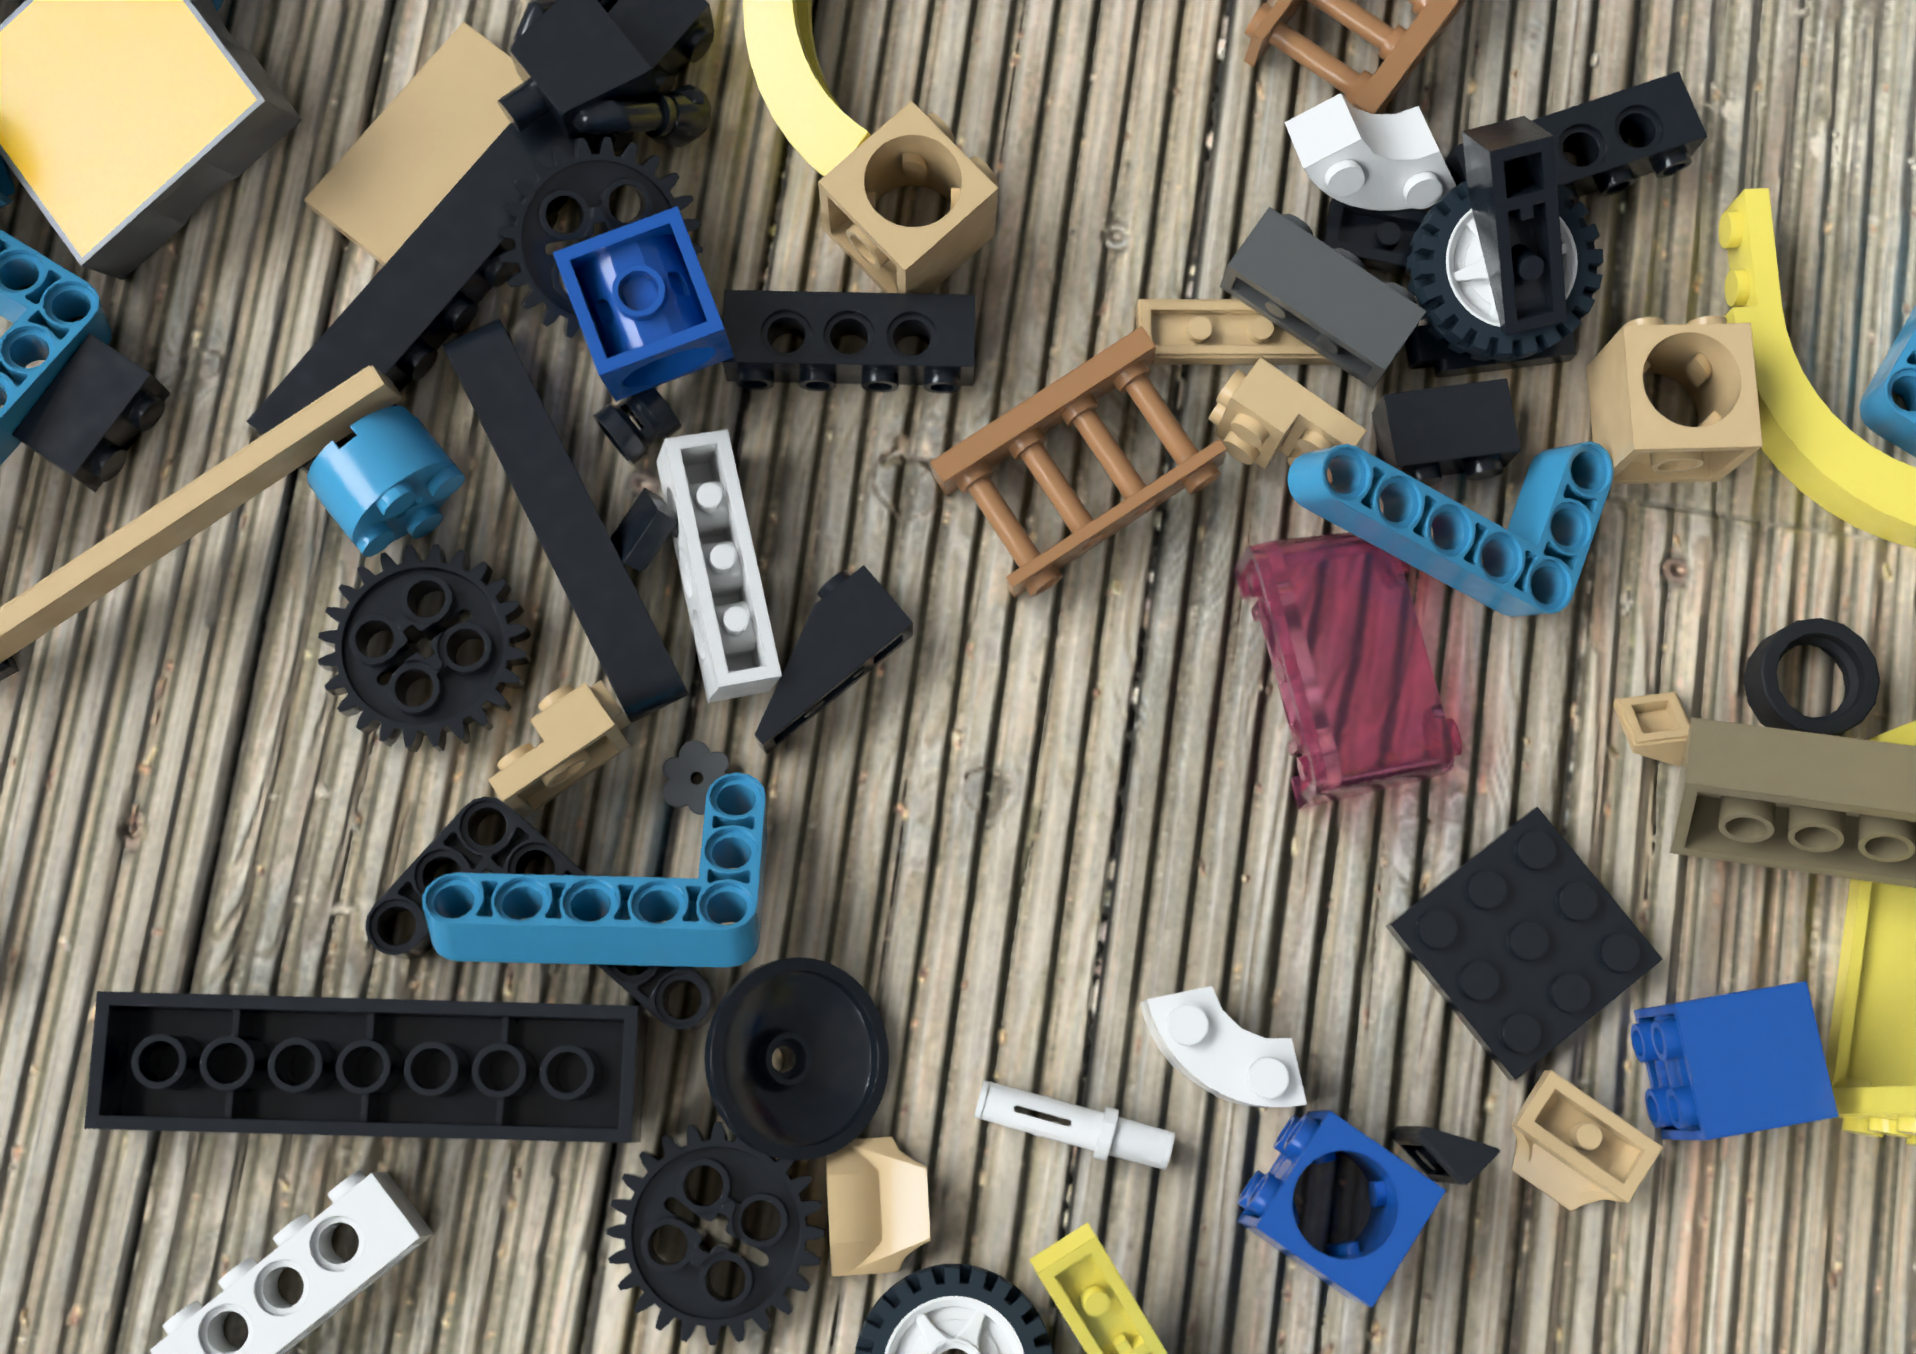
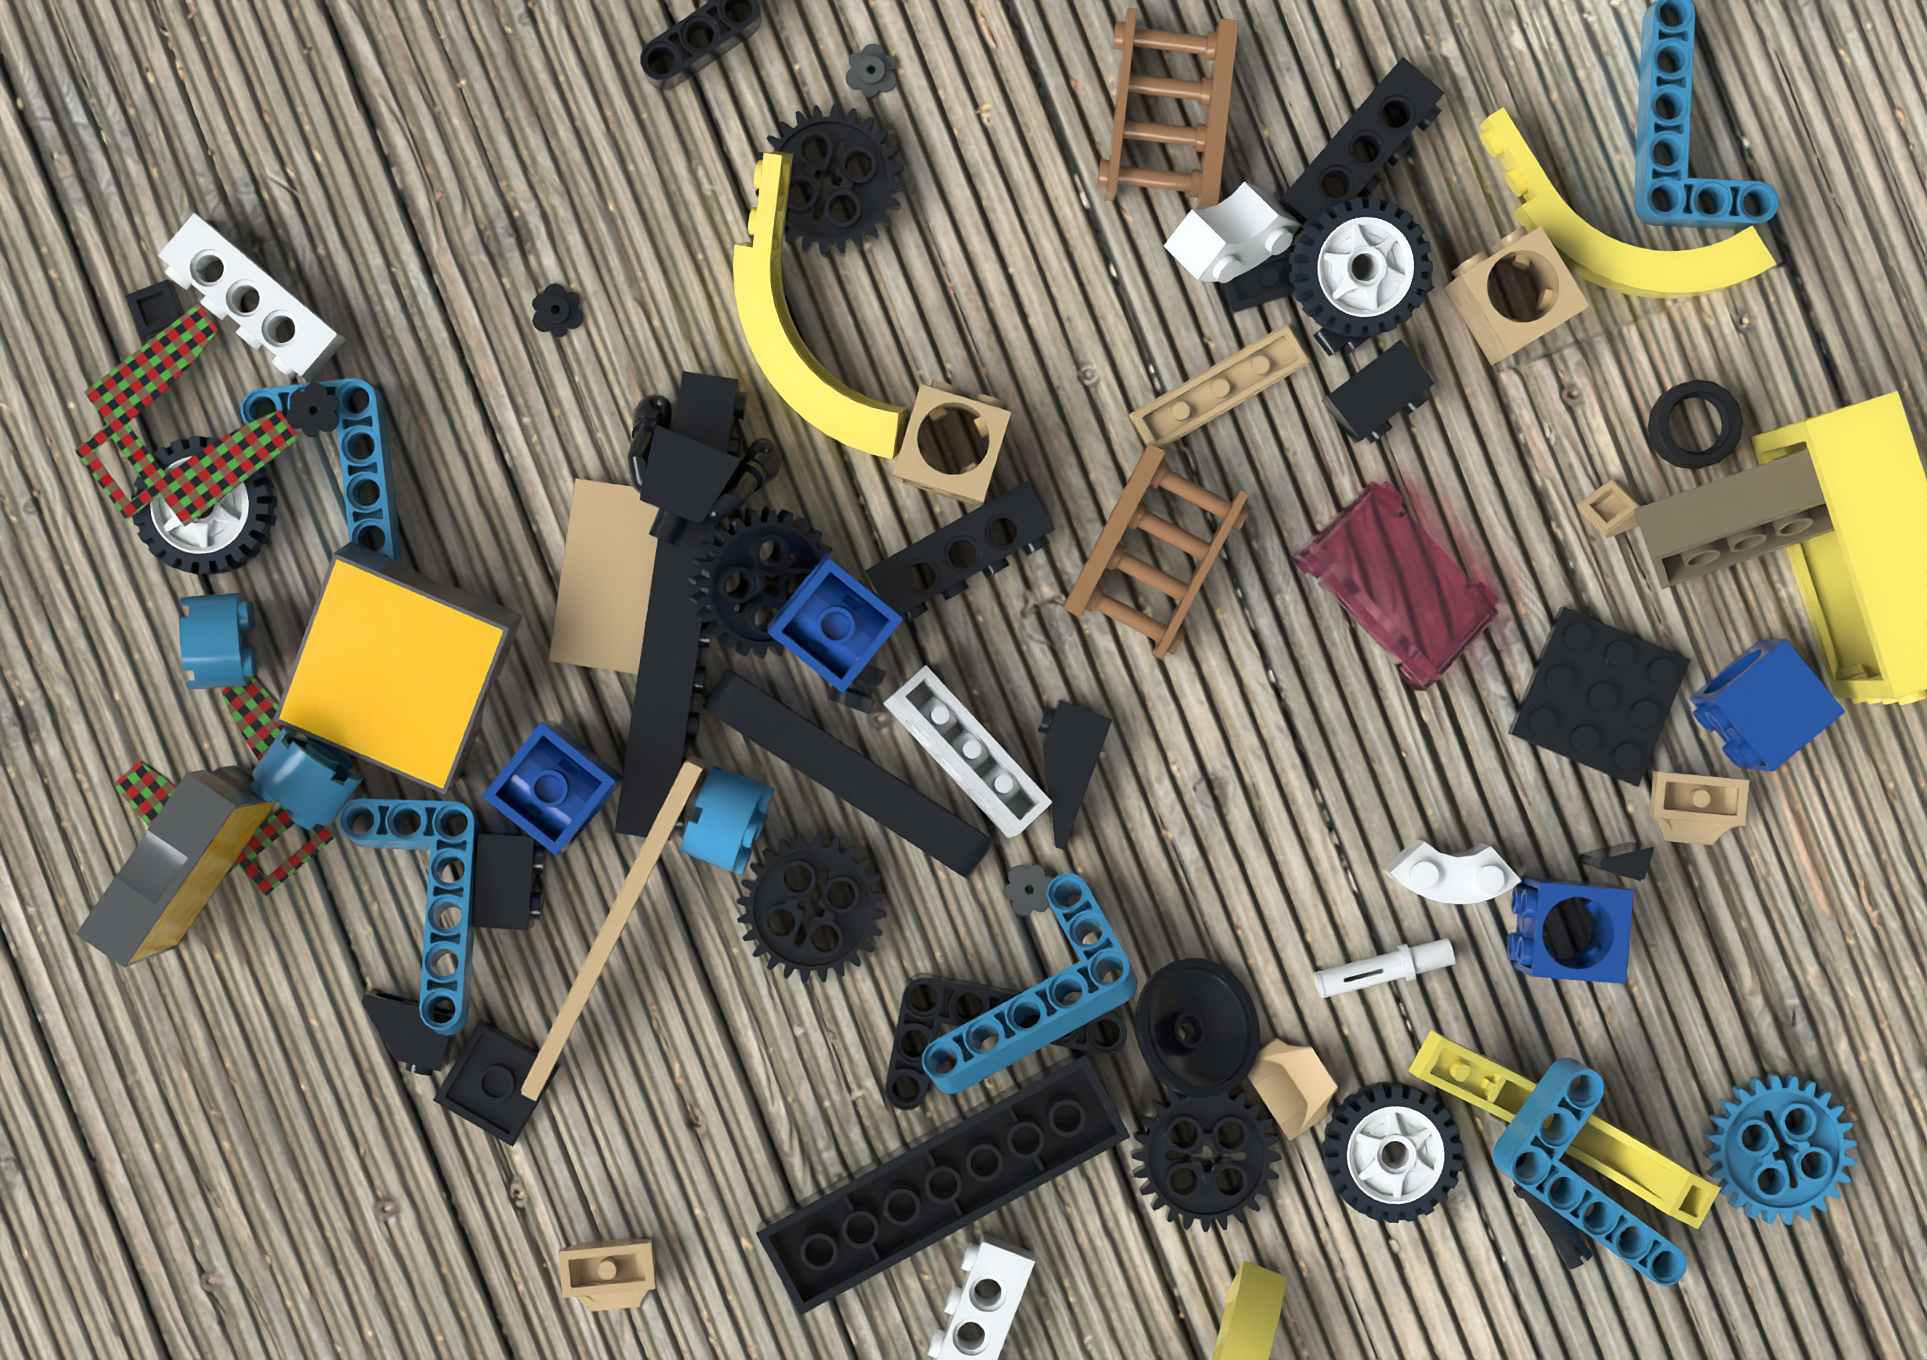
camera: 20 degrees left, 10 degrees up
(205, 324) = (553, 787): none -> blue brick
(579, 736) = (944, 912): tan plate -> none
(643, 530) = (904, 754): black tile -> none
(1273, 414) = (1263, 455): tan plate -> none
(1322, 296) = (1252, 349): dark grey brick -> none
(1517, 220) = (1357, 245): black slope -> none
(1524, 567) = (1472, 448): dark azure beam -> none

